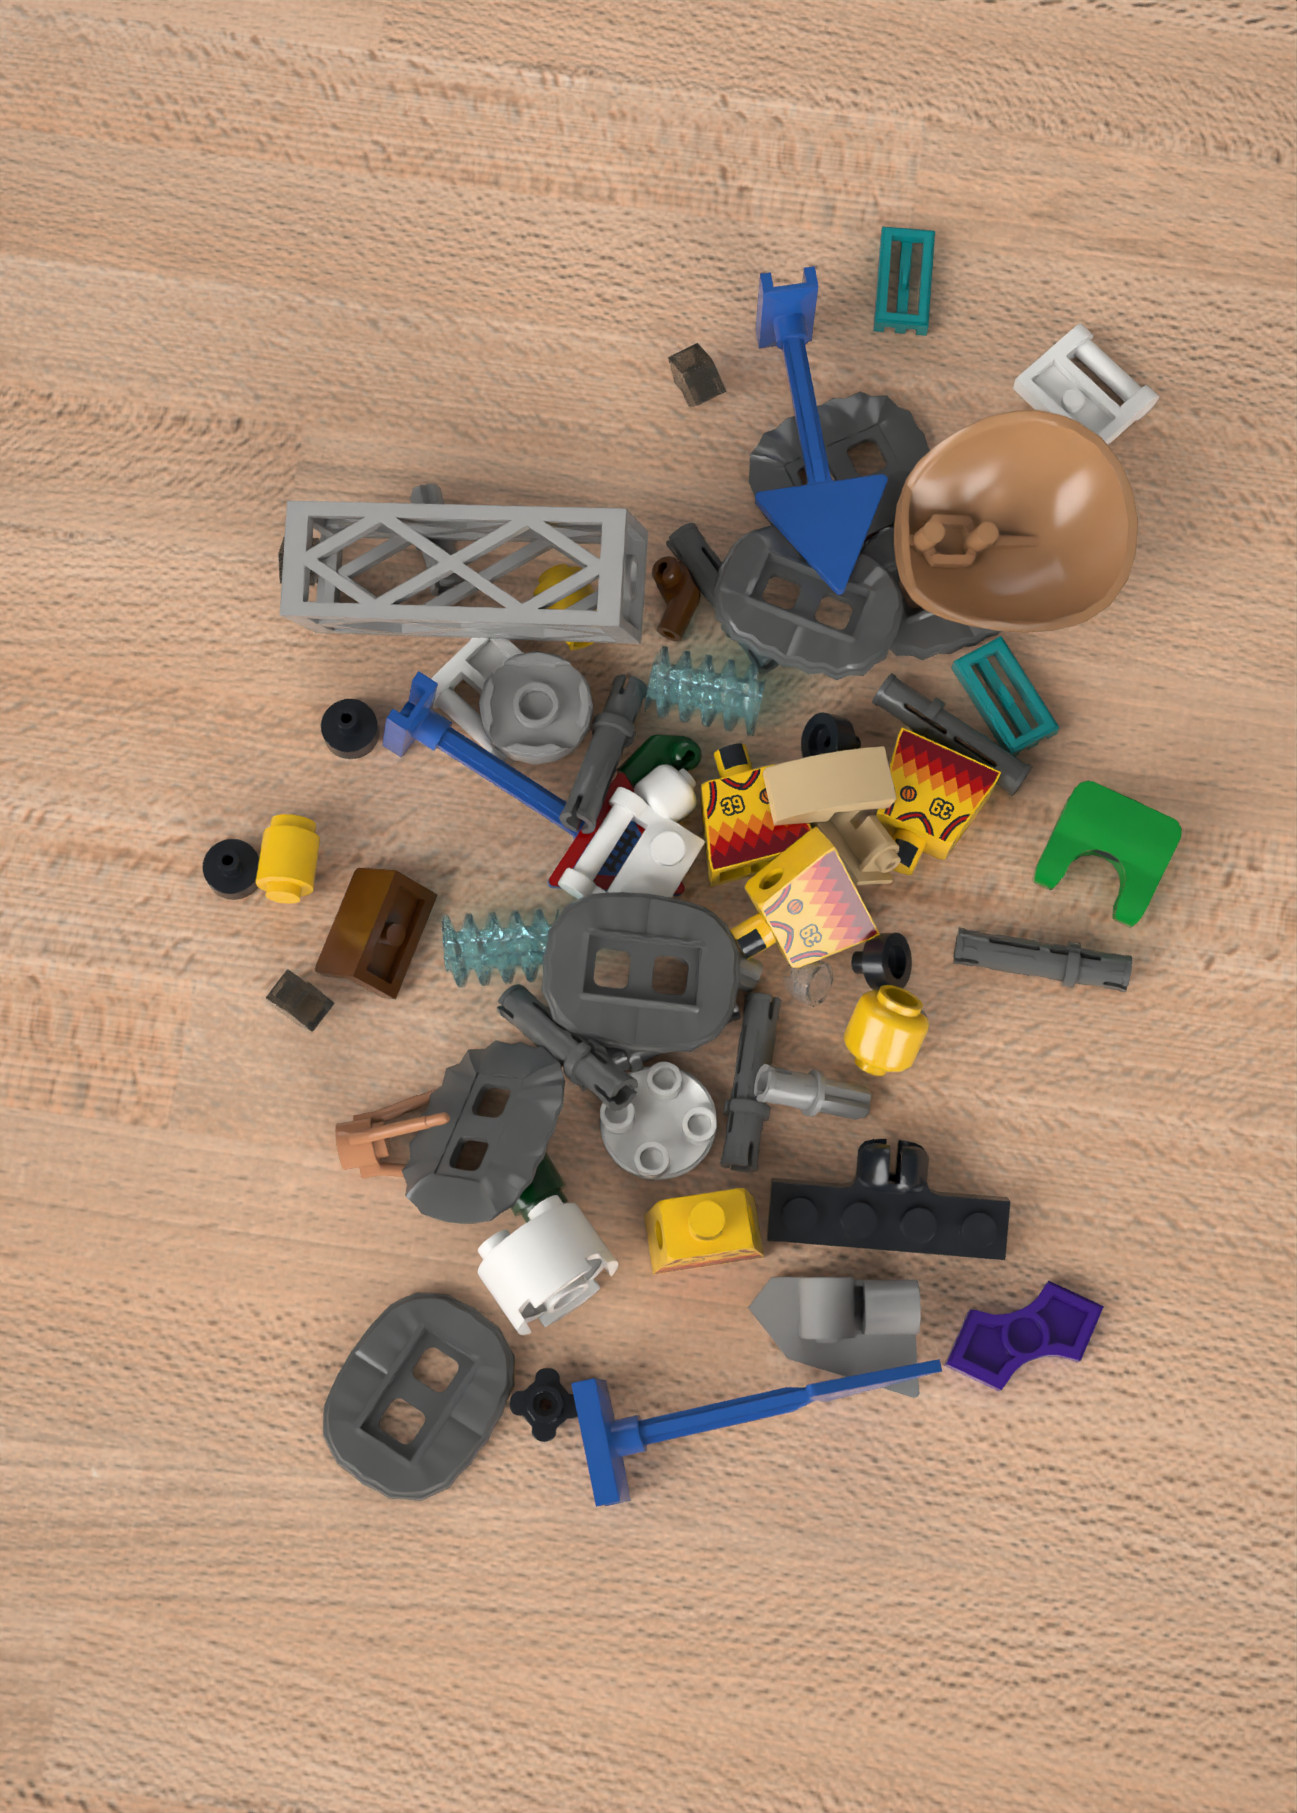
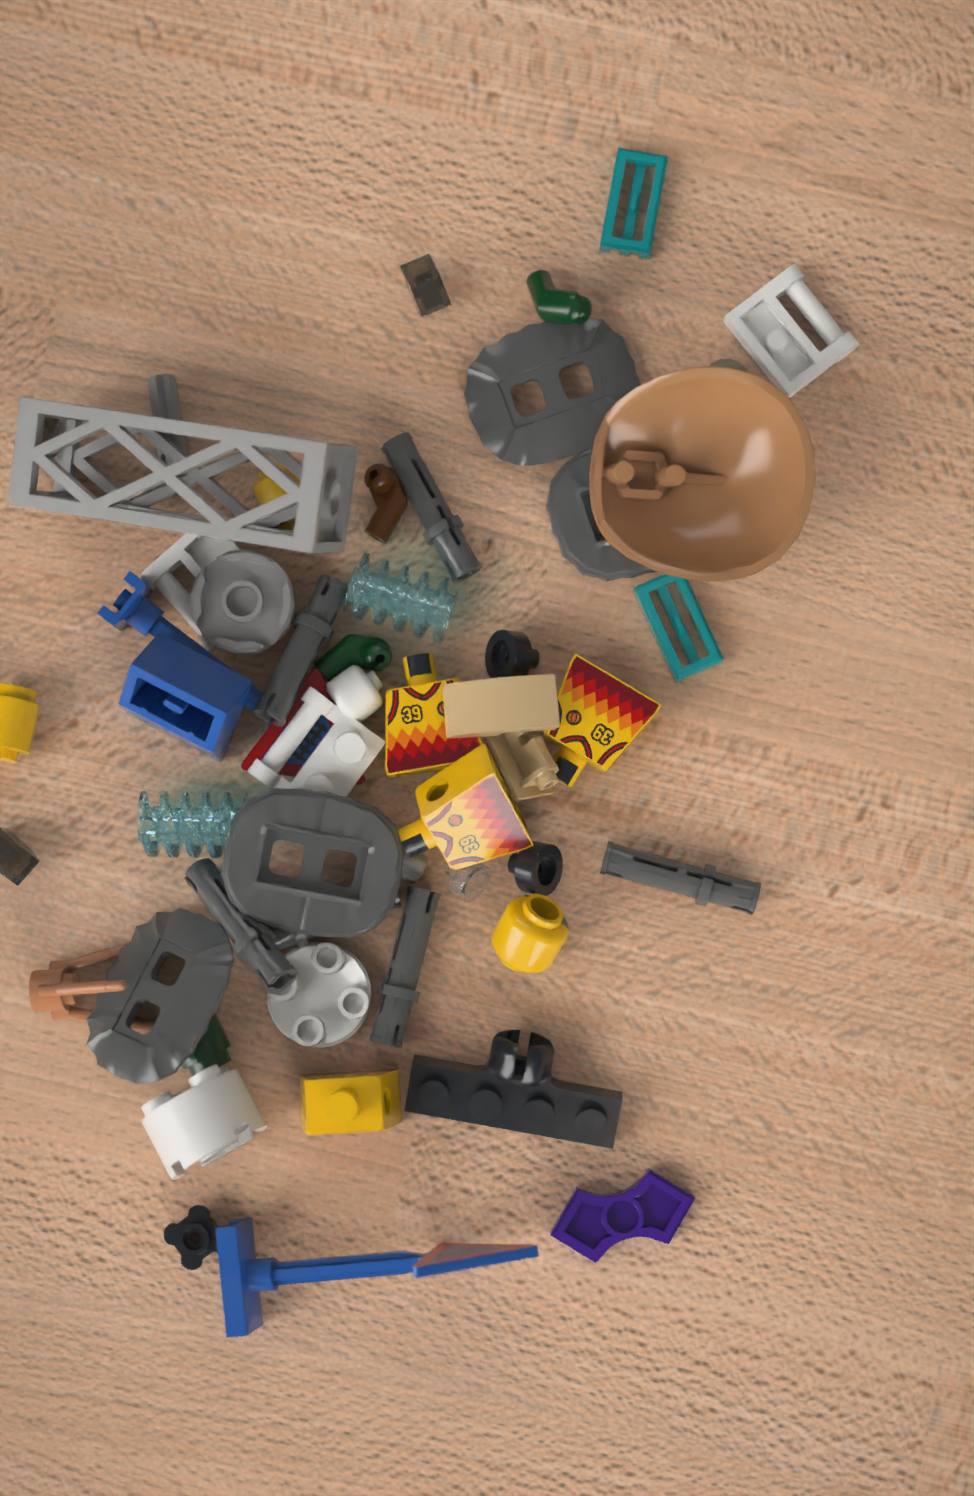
camera: 15 degrees right, 10 degrees up
(350, 729) = (84, 607): black tile -> none
(376, 930) = (83, 797): reddish brown panel -> none
(455, 1420) = (58, 1192): dark grey piece -> none
(483, 810) = (185, 695): none -> blue slope
(794, 634) = (519, 491): dark grey piece -> none
(811, 1093) = (456, 984): light grey axle -> none
(825, 516) = (528, 442): blue piece -> none
(840, 382) = (557, 305): none -> dark green arm
(843, 1323) = (463, 1191): light grey panel -> none
(896, 696) = (623, 657): dark grey pin -> none
(1120, 831) = (766, 768): green piece -> none

